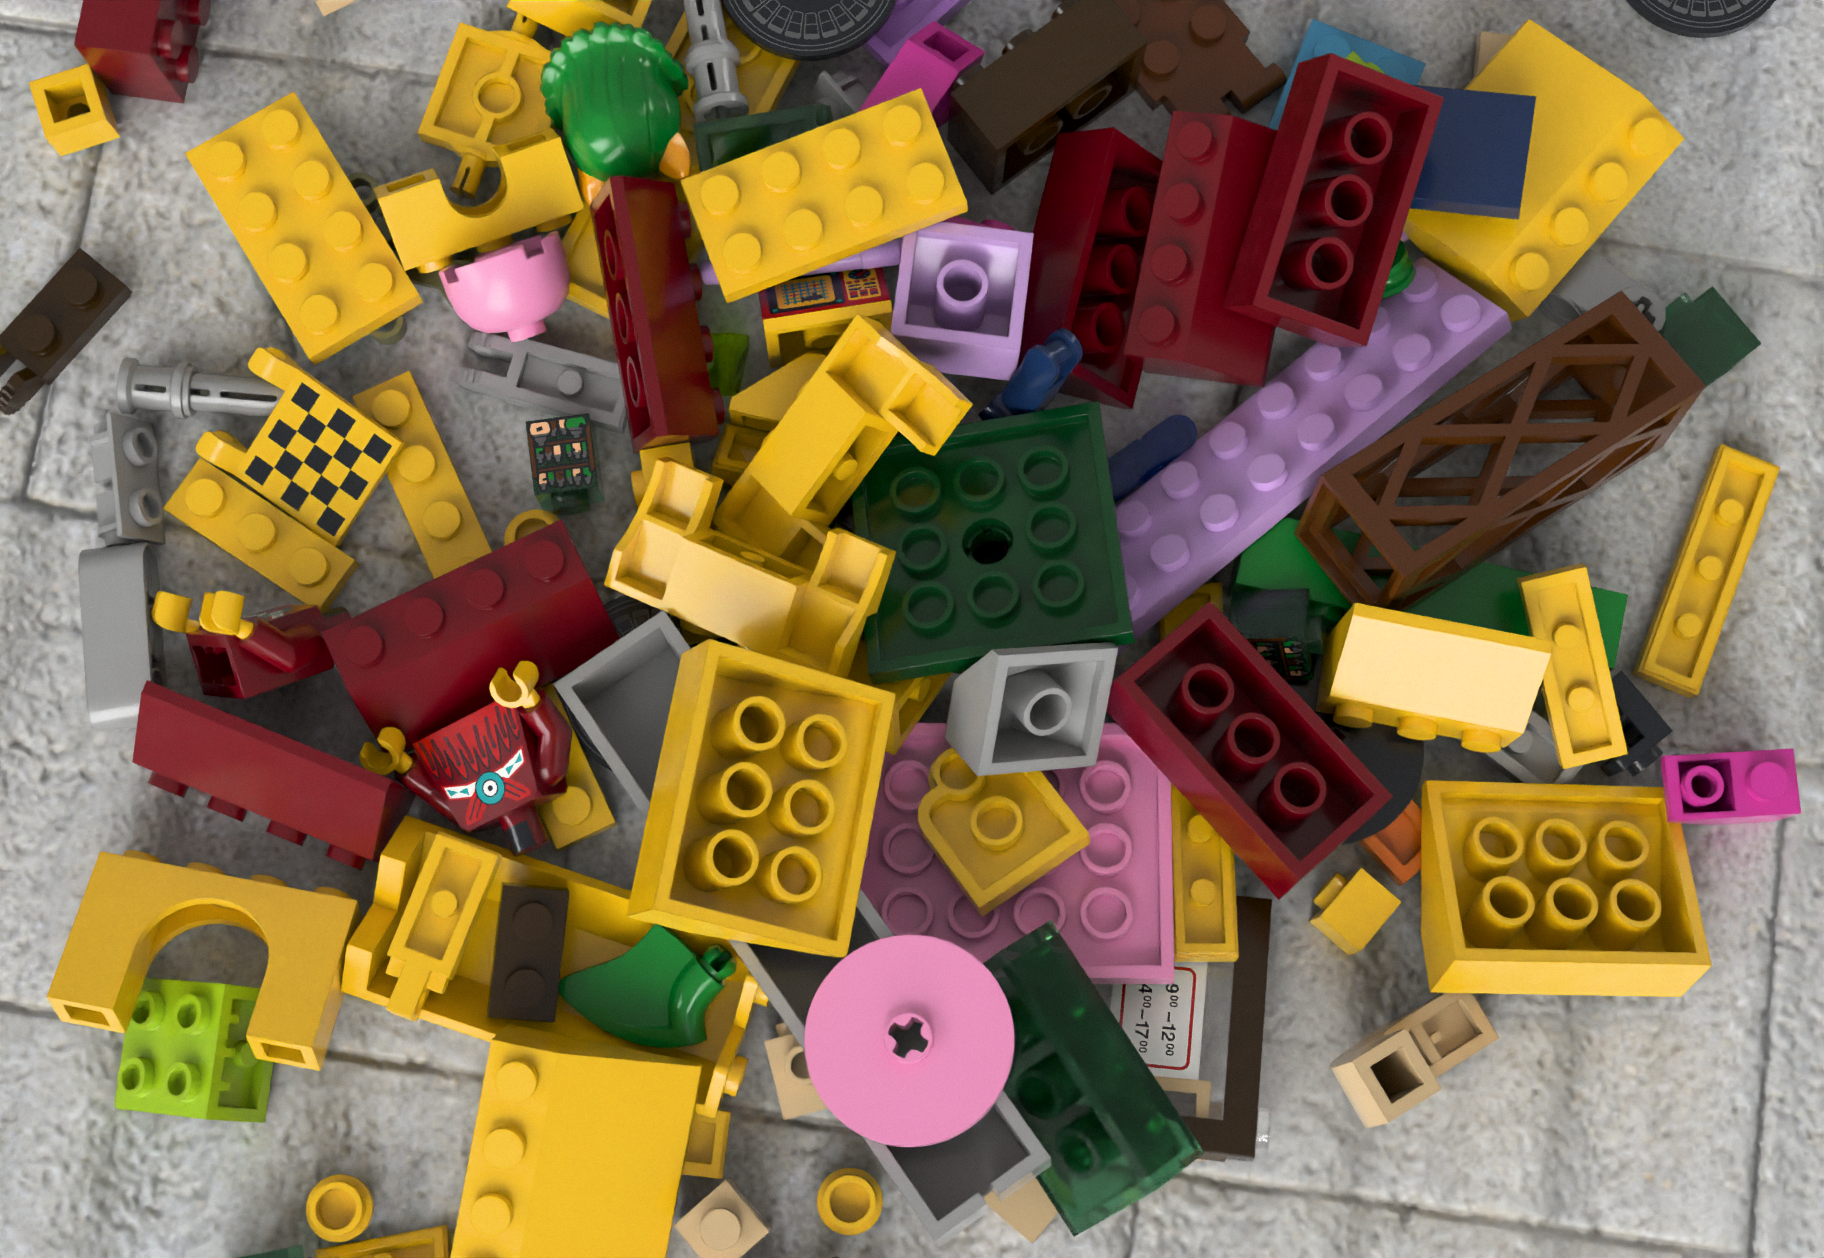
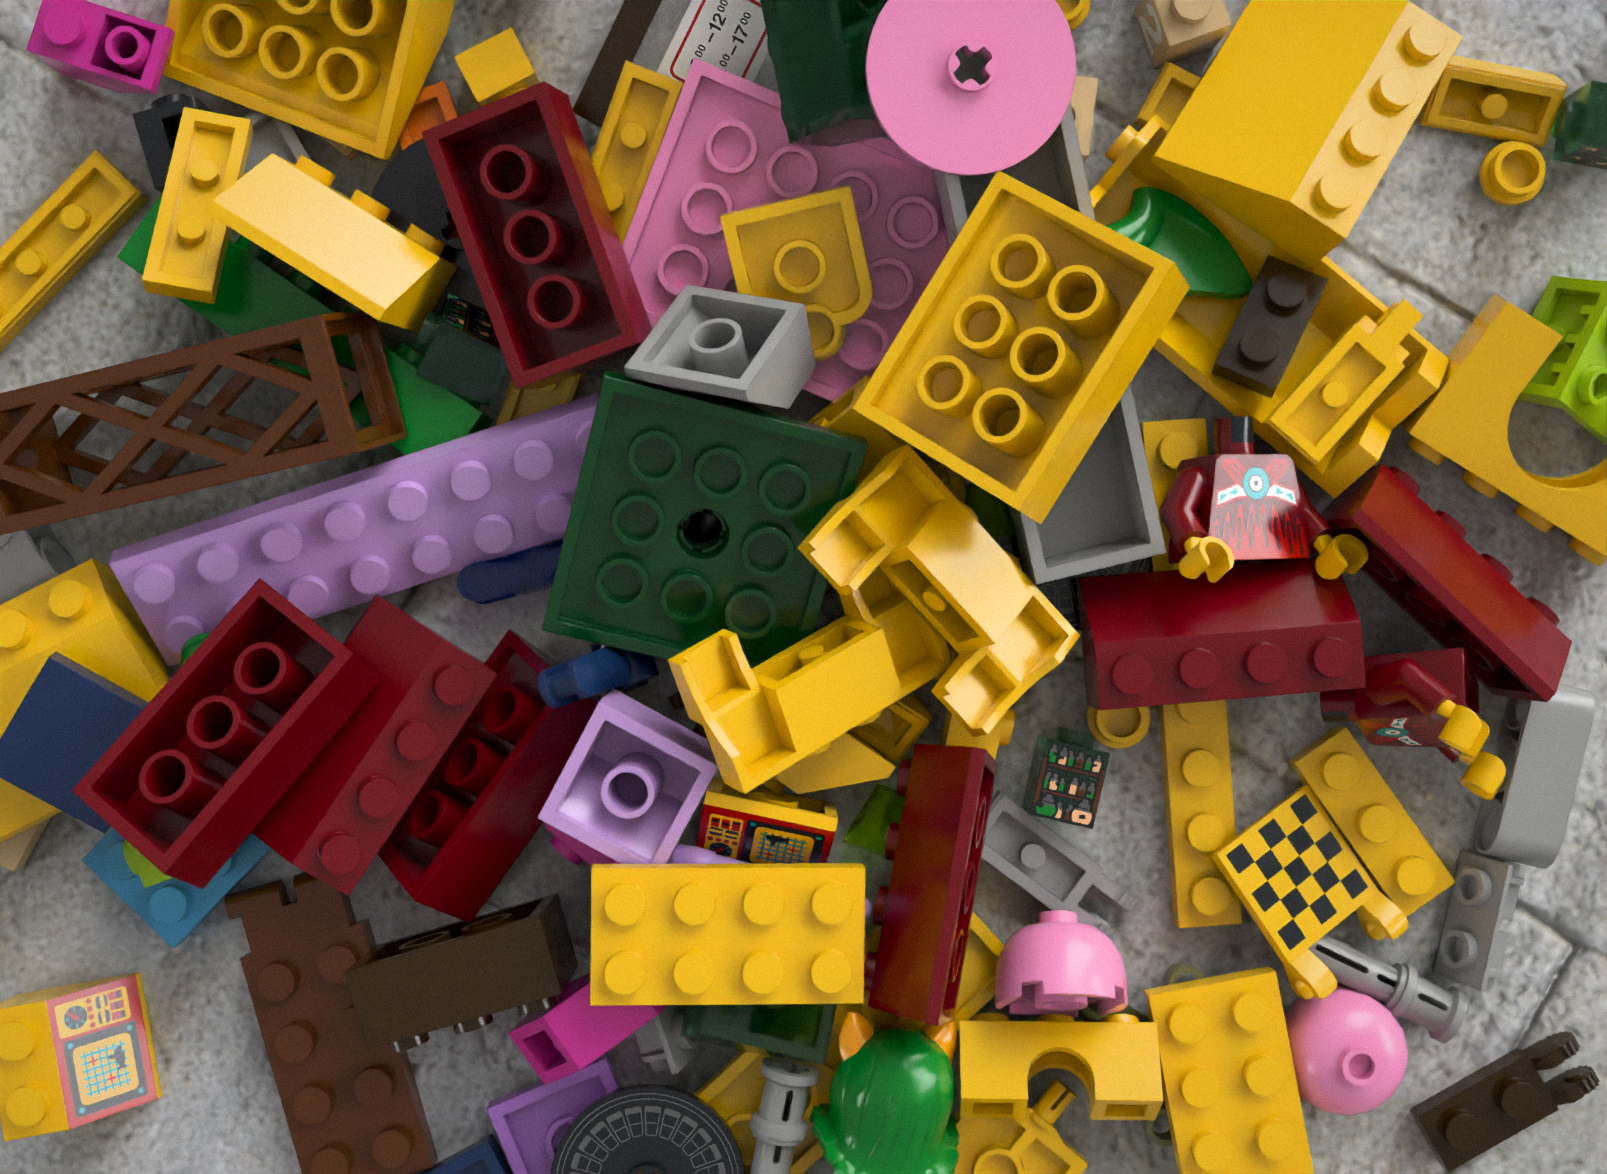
camera: 155 degrees left, 10 degrees up
(216, 316) = (1346, 1051): none -> bright pink cylinder

